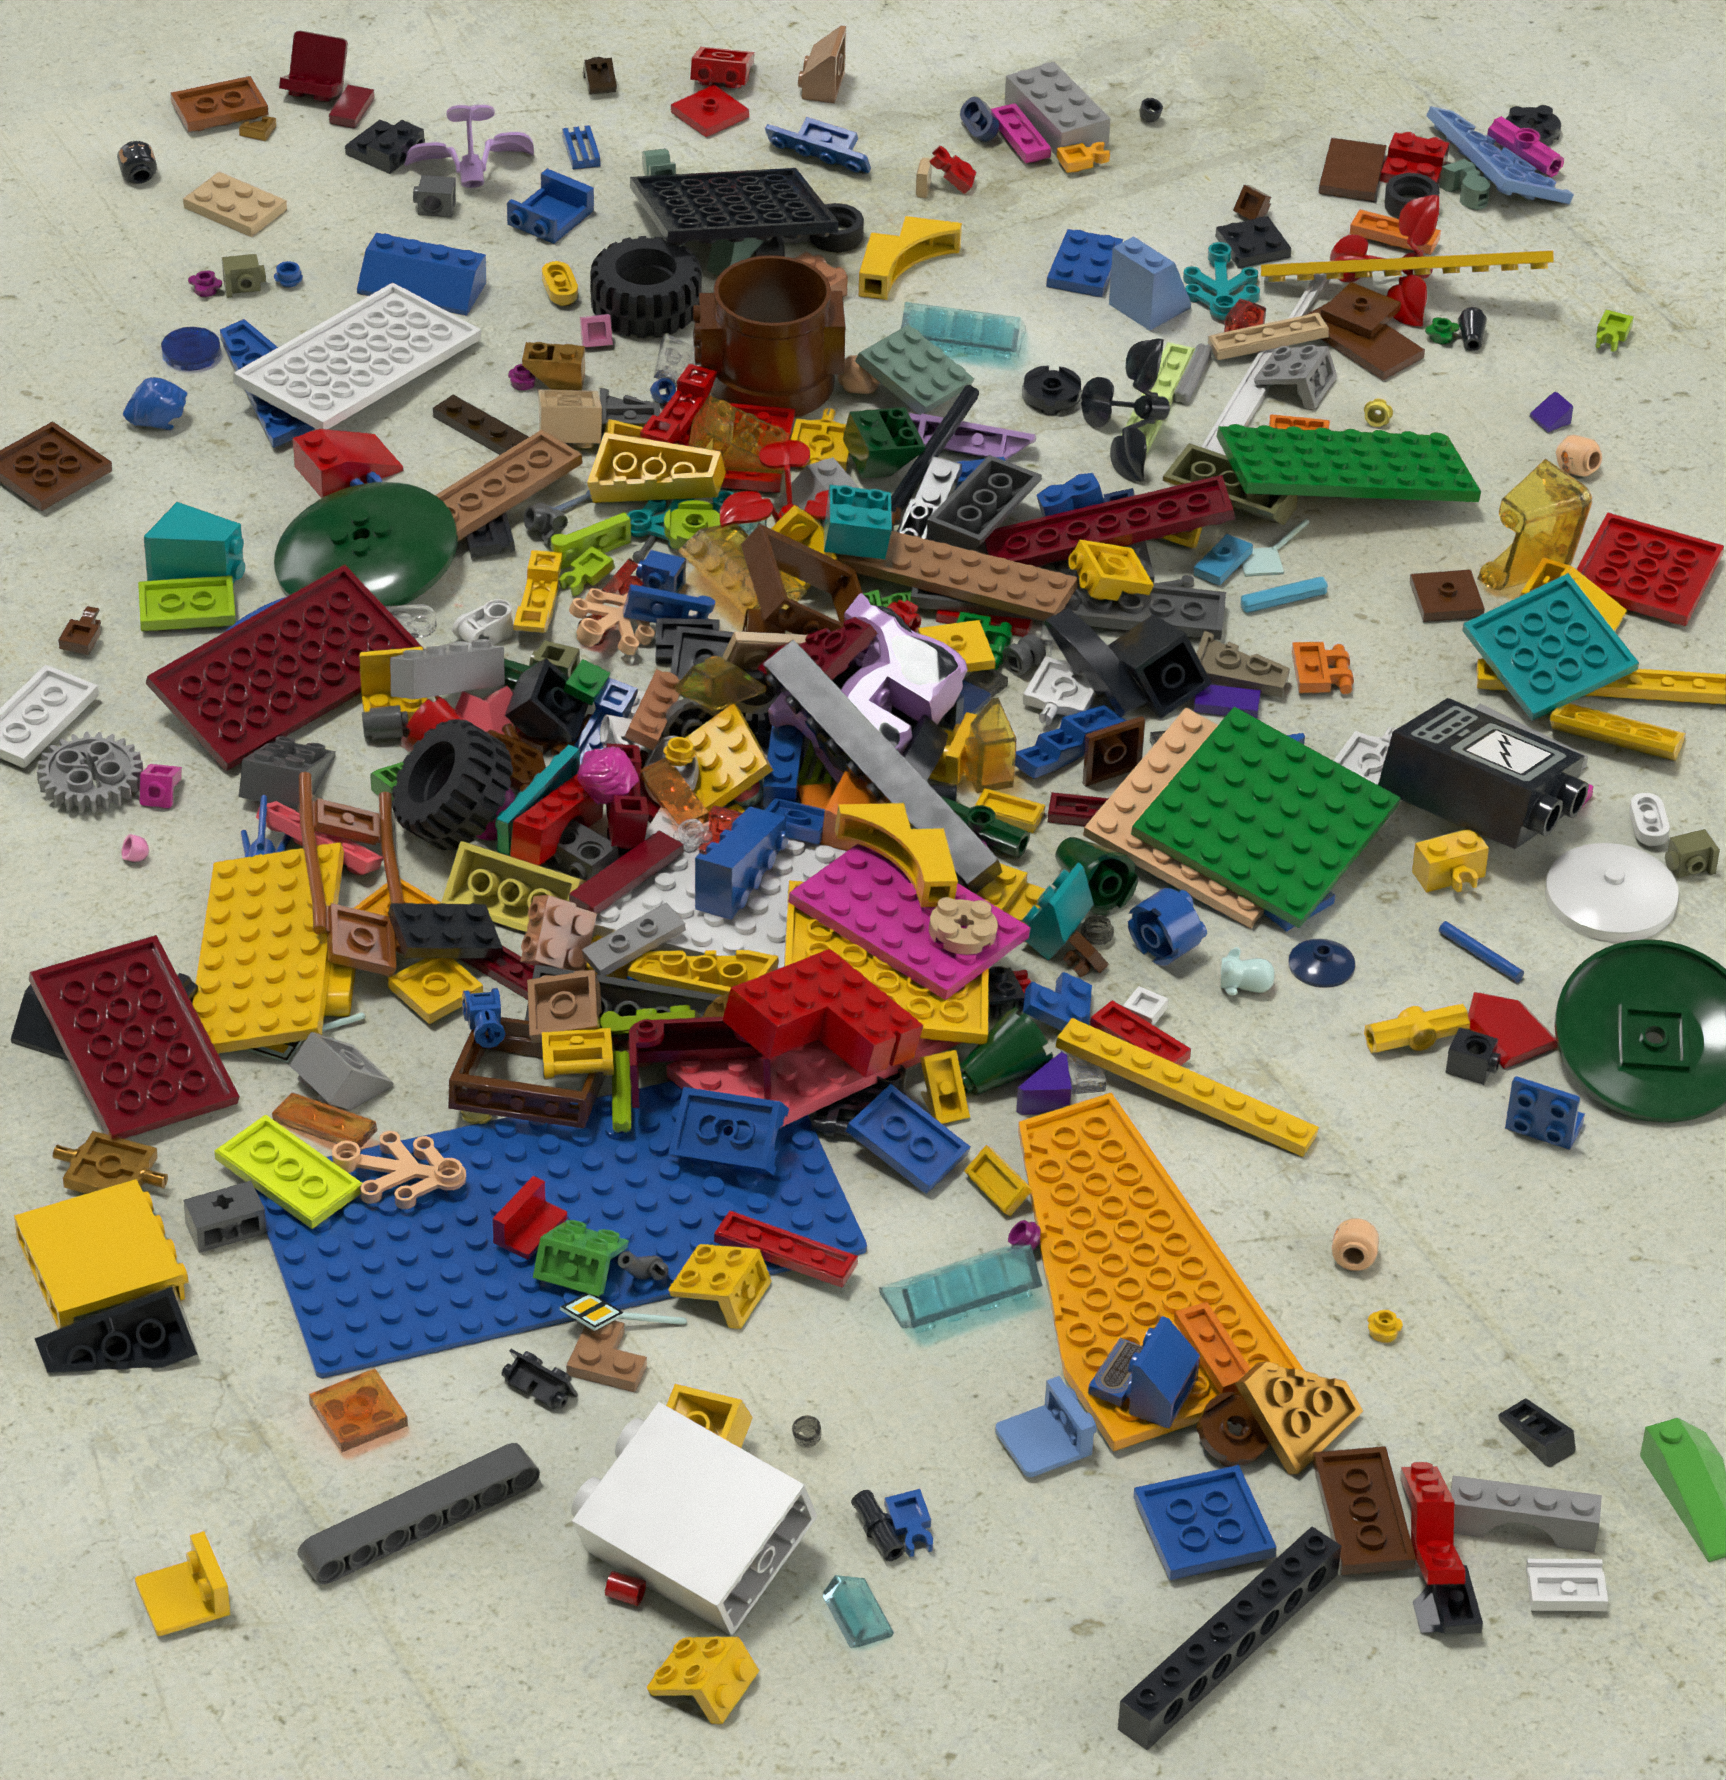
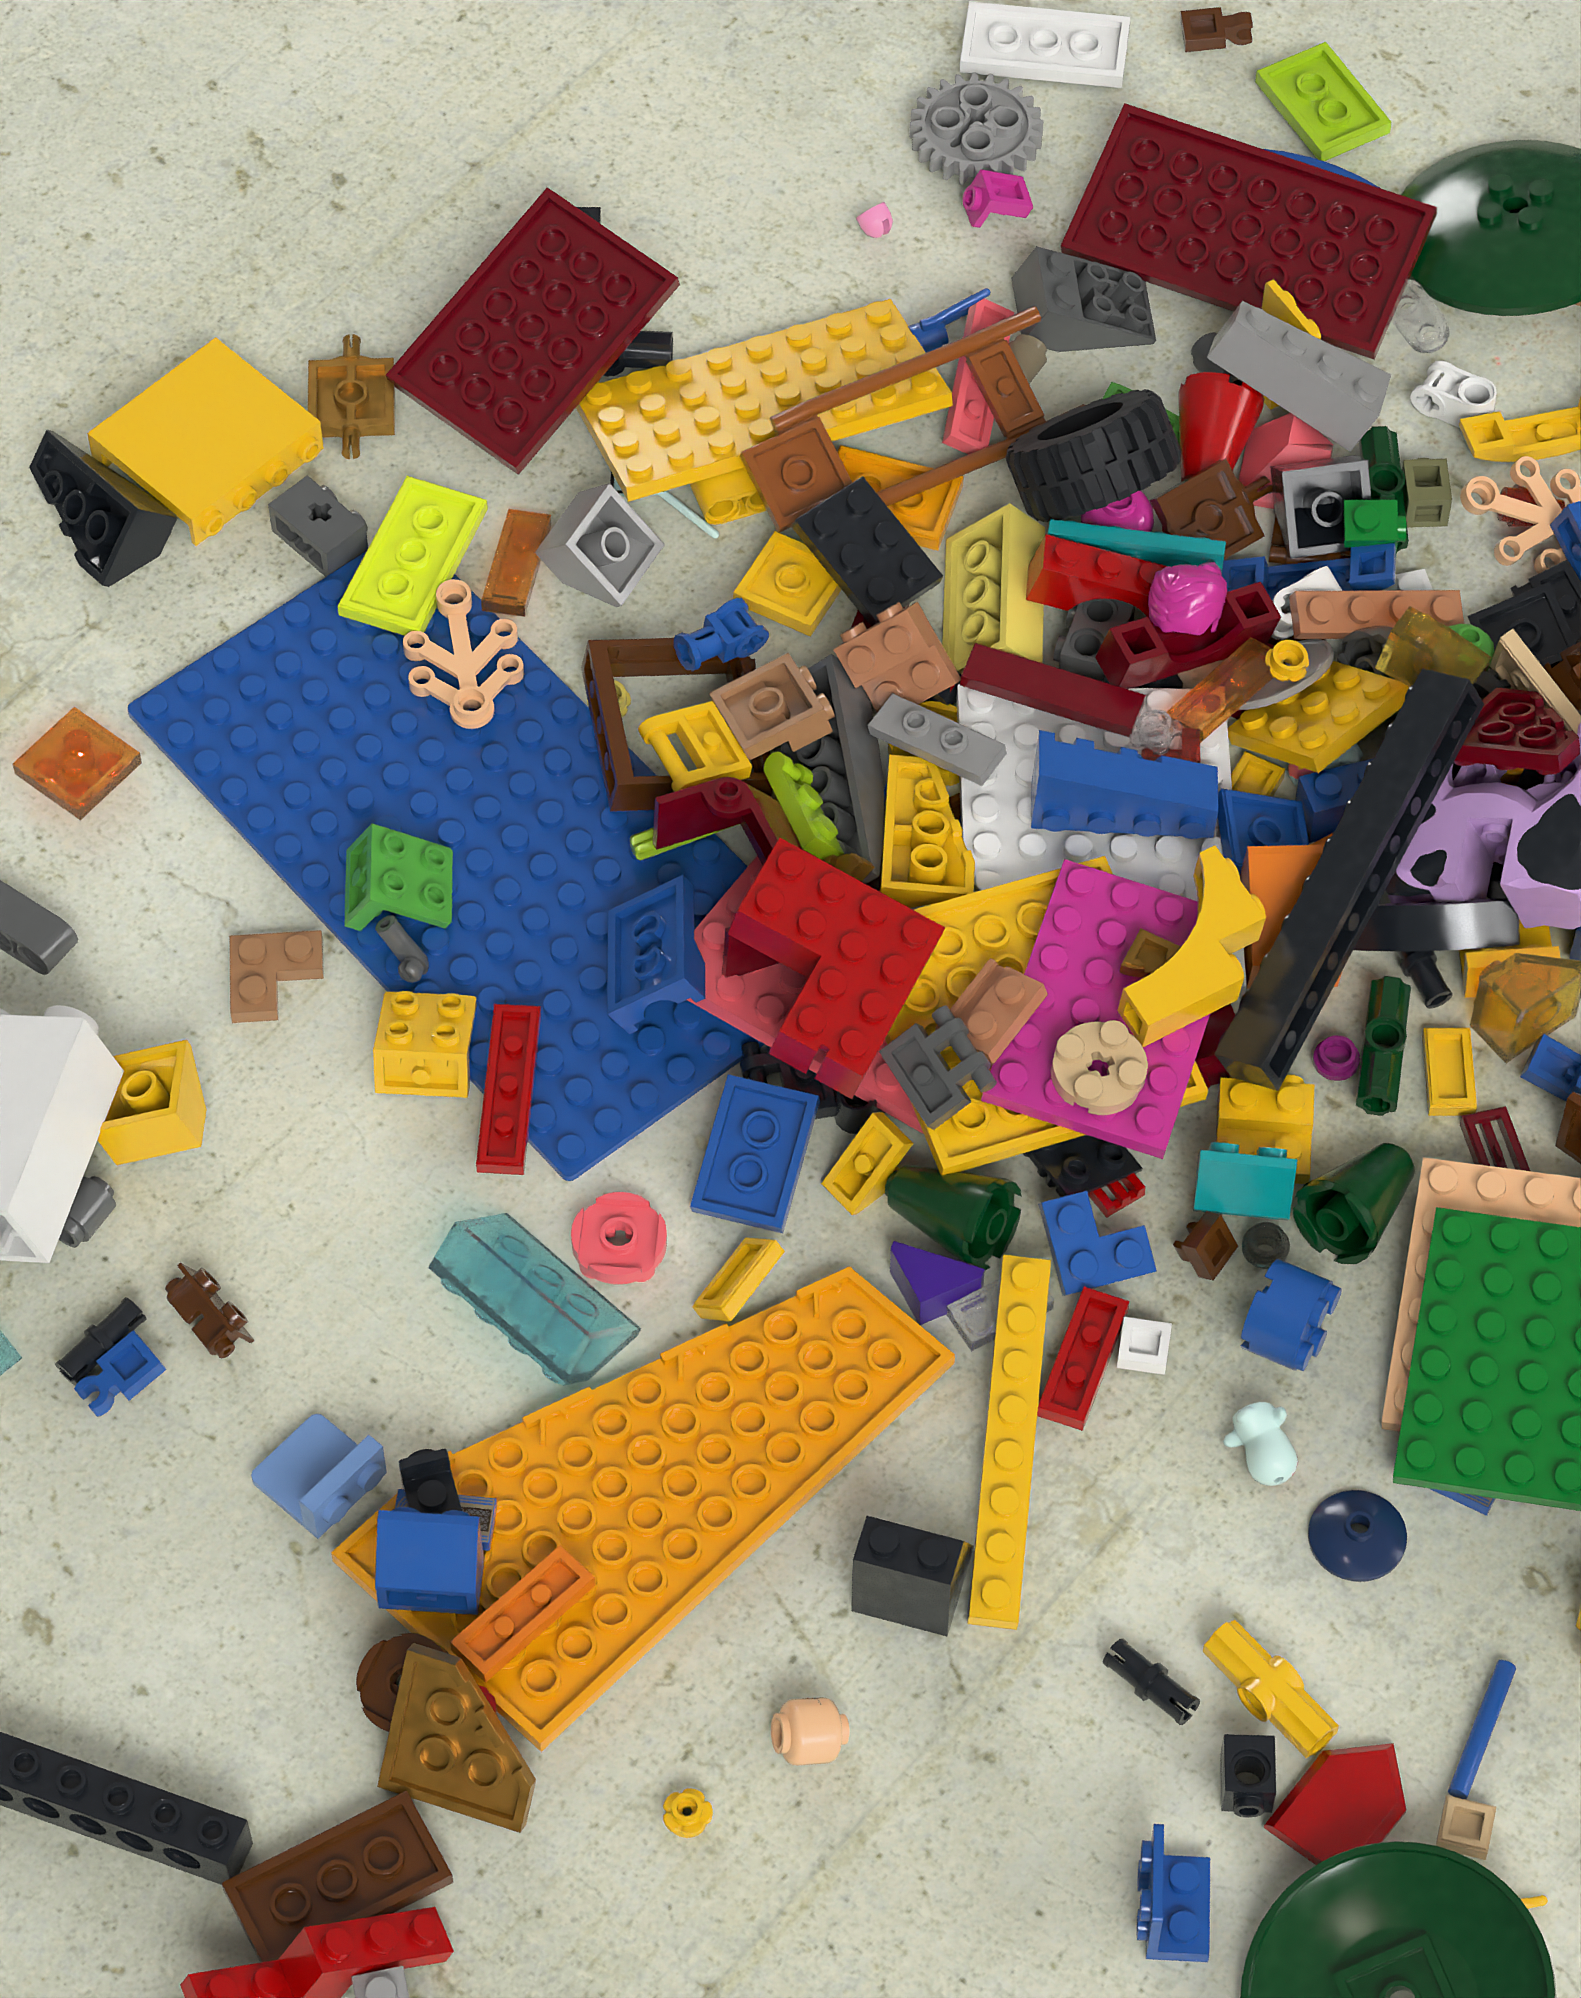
camera: 70 degrees right, 15 degrees up
(193, 546) = (1397, 61): teal slope -> none
(526, 1219) = (434, 808): red panel -> none
(529, 1370) = (204, 907): black hinge -> none
(597, 1313) = (319, 931): piece -> none
(808, 1426) = (213, 1216): clear smoke hinge -> none
(889, 875) = (1147, 954): none -> pearl gold tile
(892, 961) = (997, 1007): none -> nougat plate
(895, 1454) = (198, 1295): none -> reddish brown hinge
(929, 1247) = (624, 1263): none -> coral plate
(931, 1008) = (926, 1076): none -> dark grey plate
(1025, 1234) = (651, 1340): magenta plate -> none
(1104, 1364) = (429, 1482): none -> black bracket
(1204, 1522) = (244, 1701): blue plate -> none
(1269, 1154) = (908, 1575): none -> black slope
(1387, 1080) = (1151, 1681): none -> black pin
(1543, 980) = (1466, 1827): none -> tan tile

